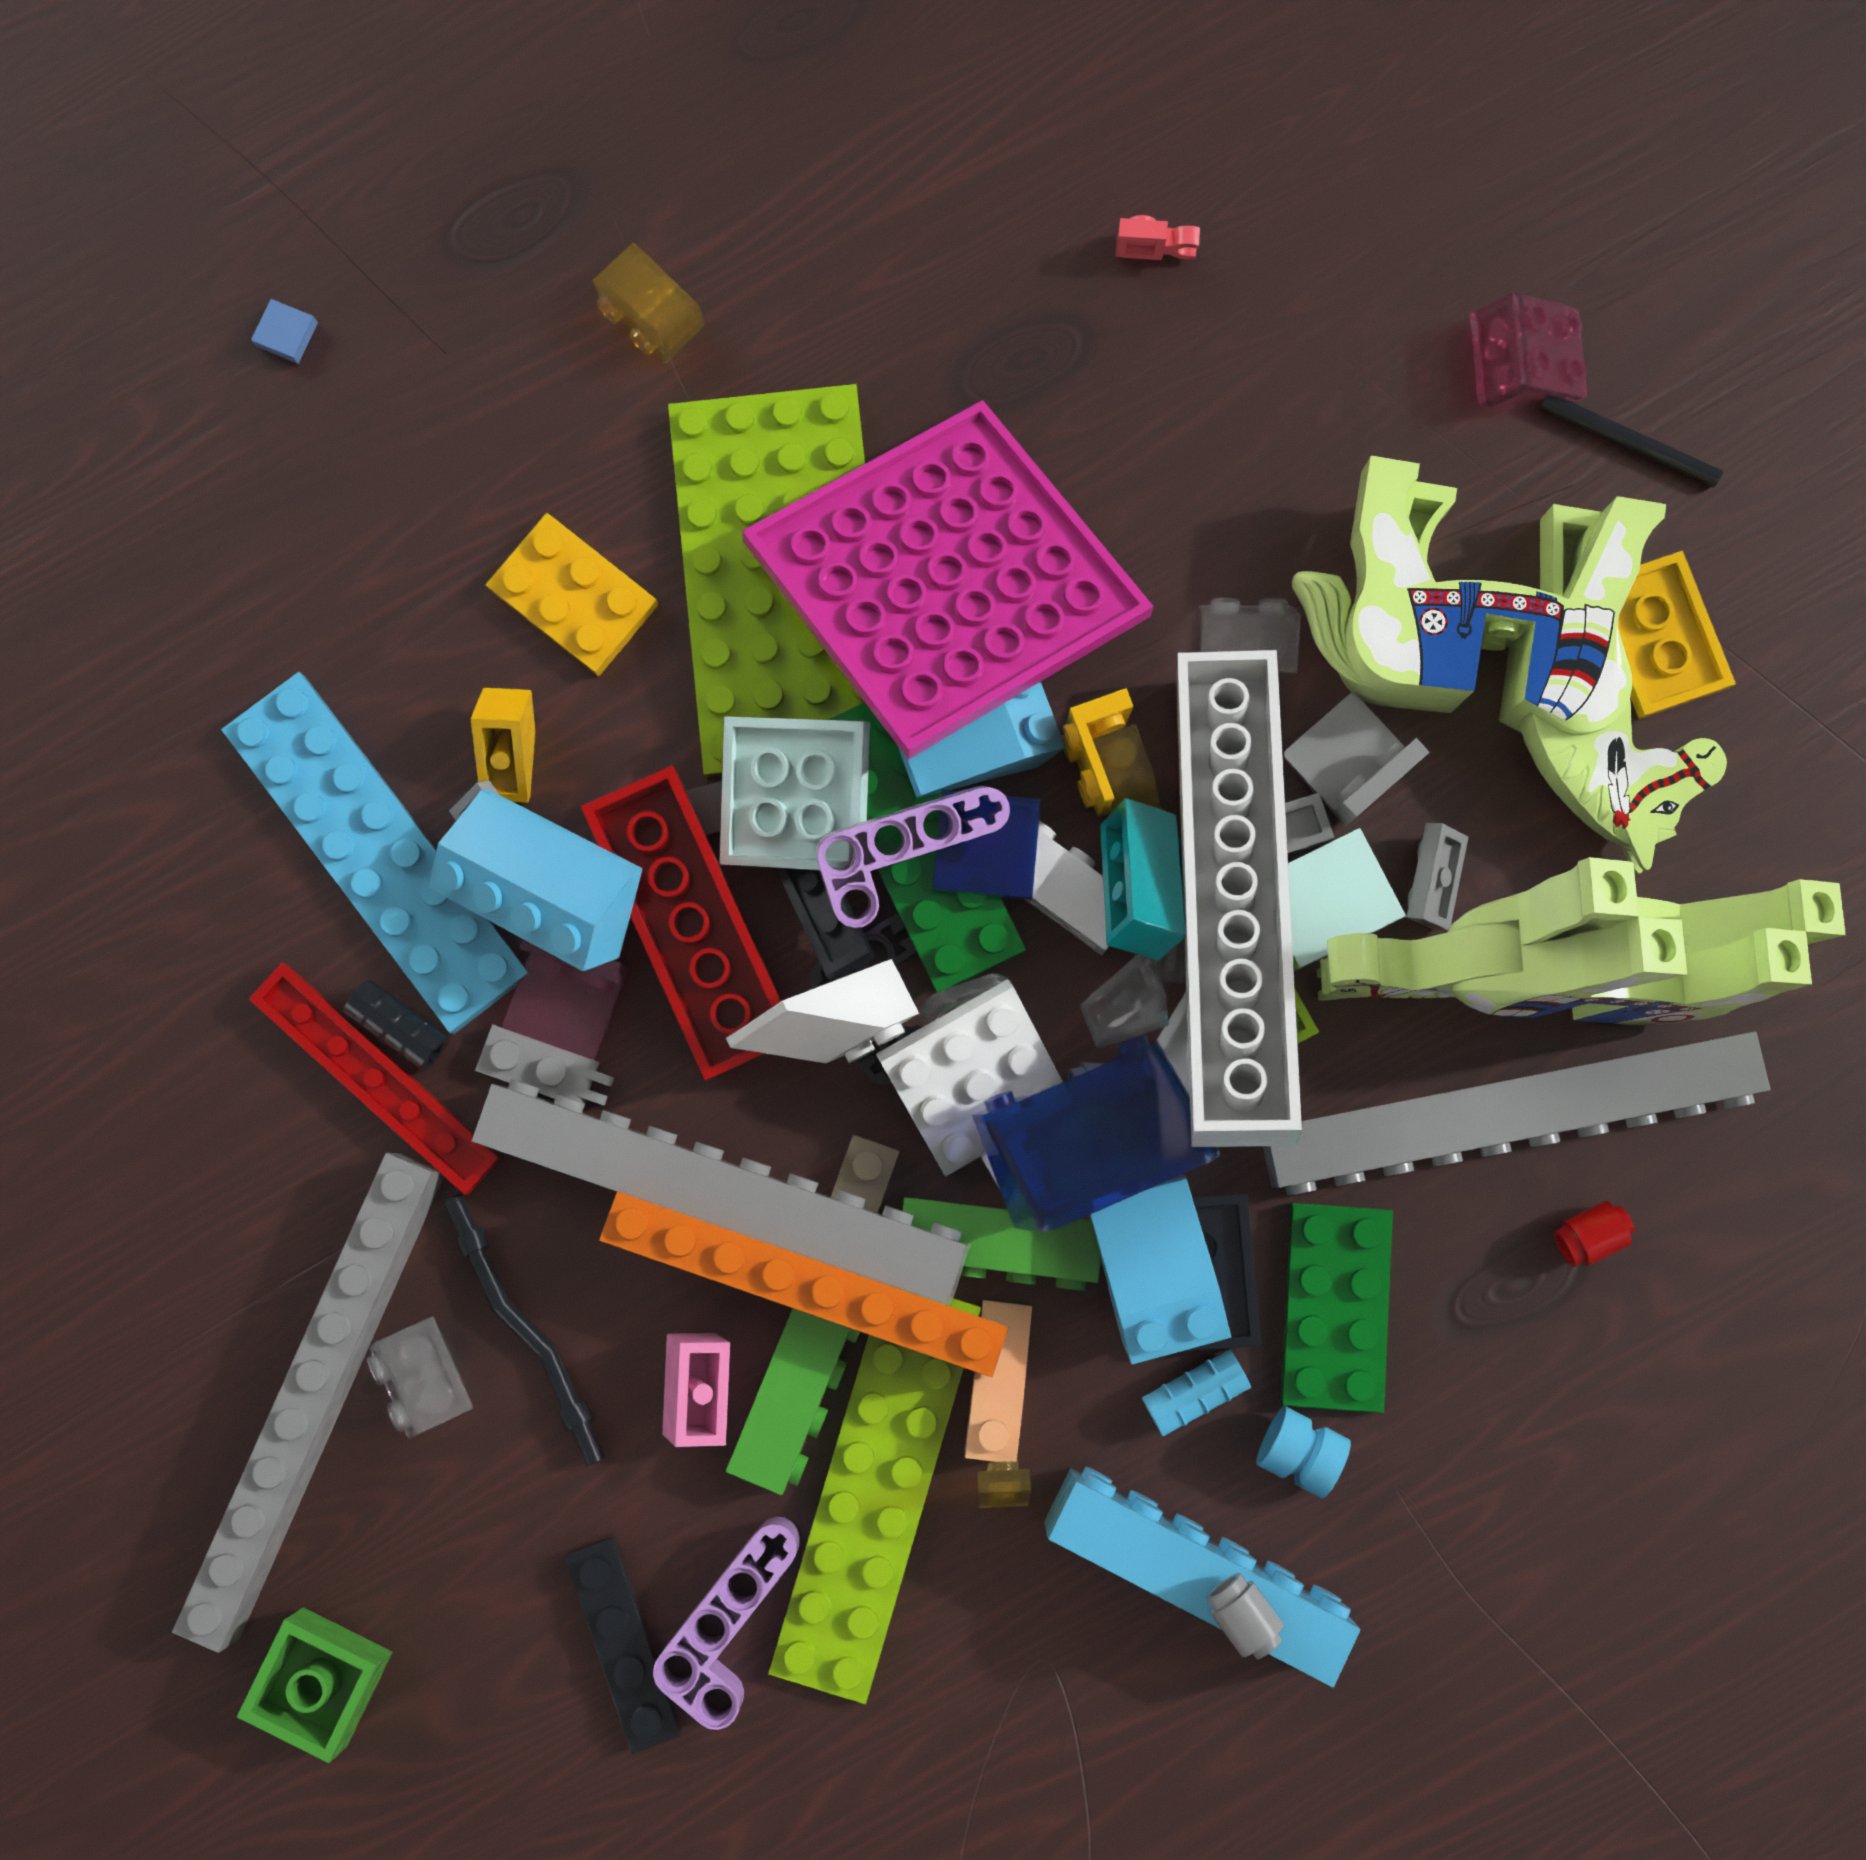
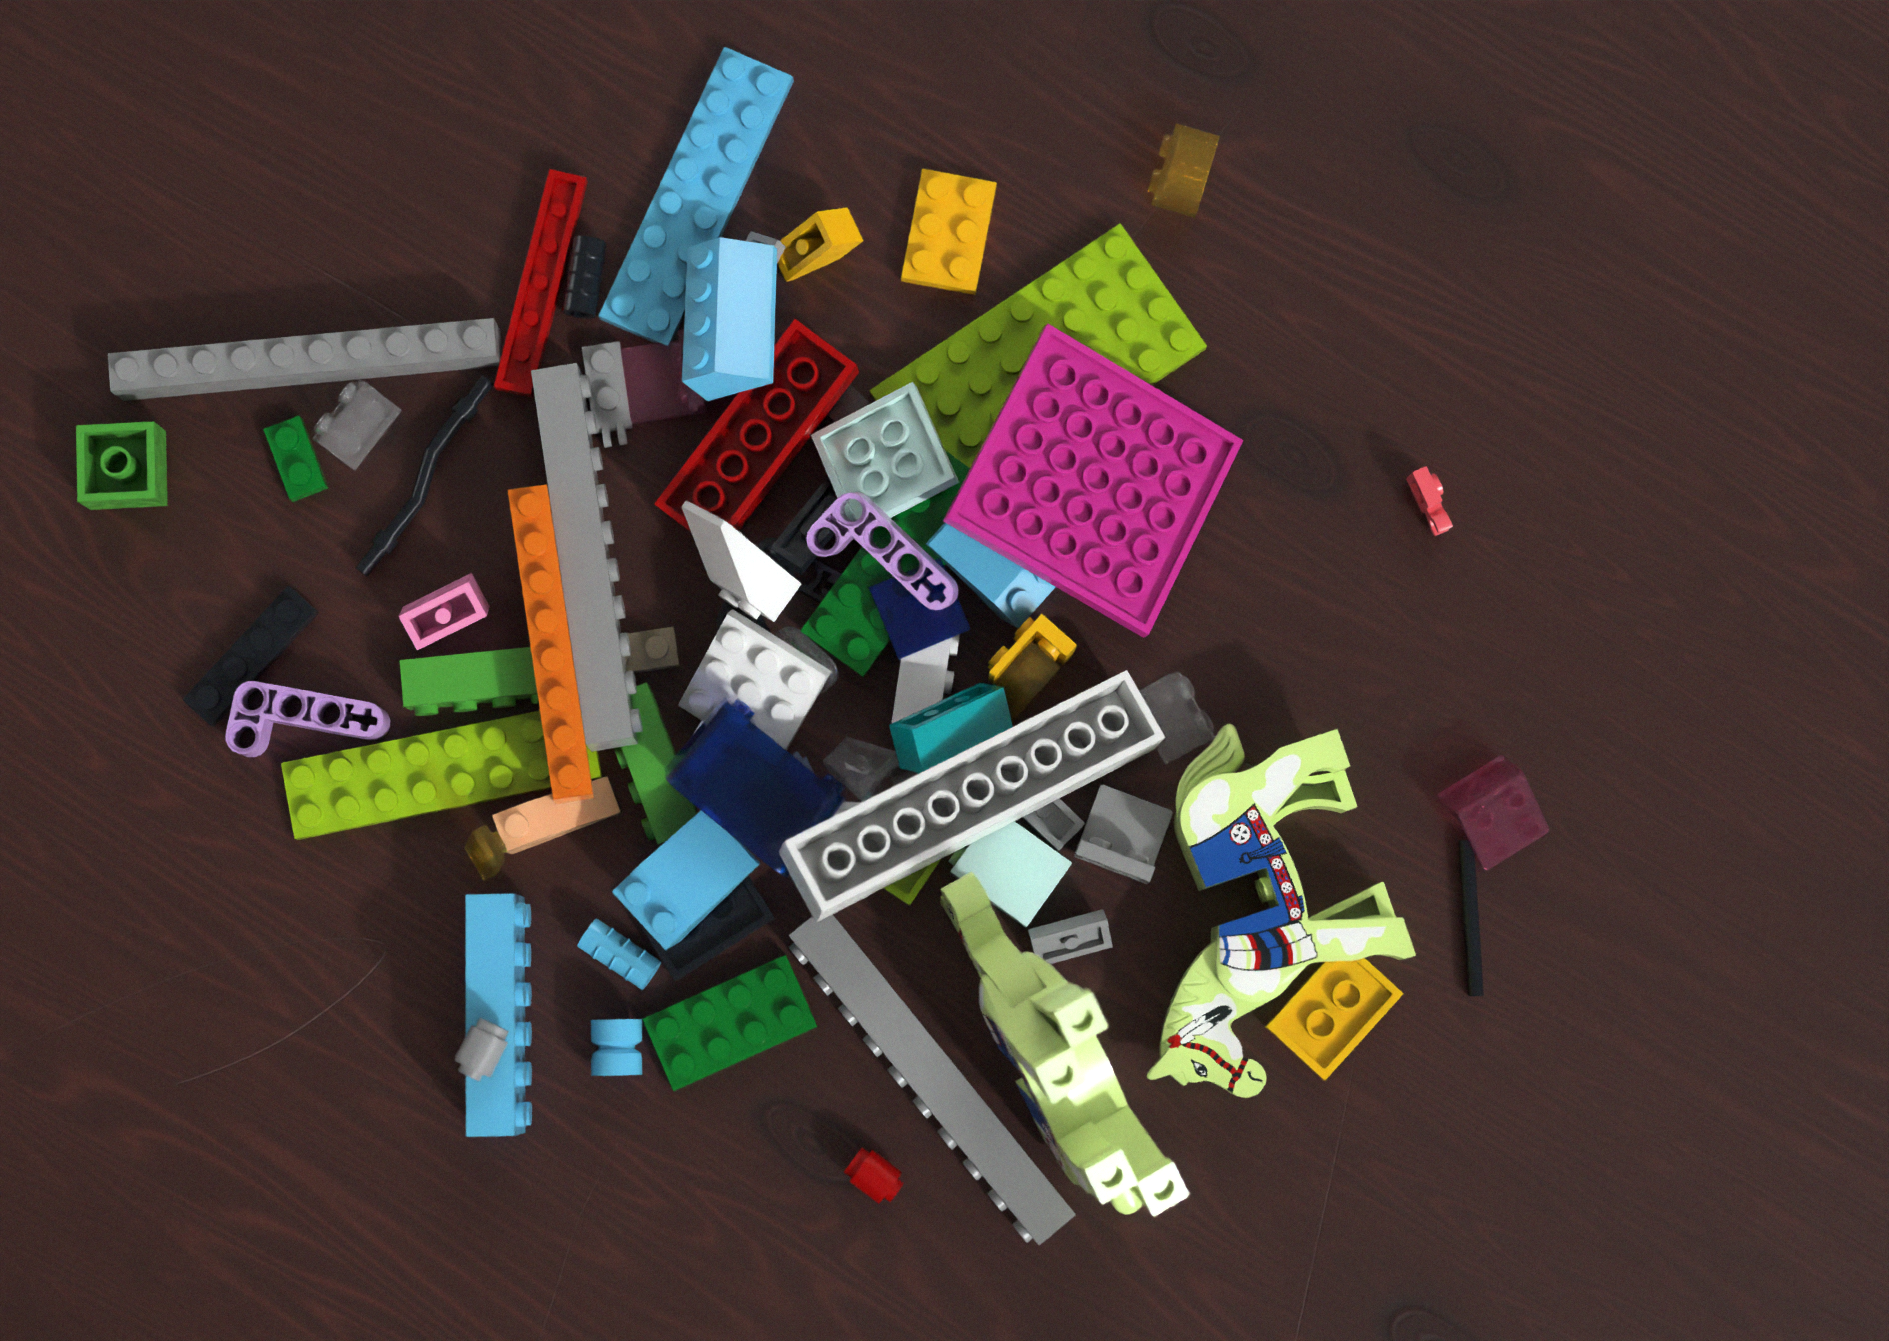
camera: 55 degrees right, 0 degrees up
(420, 1469) = (295, 458): none -> green plate

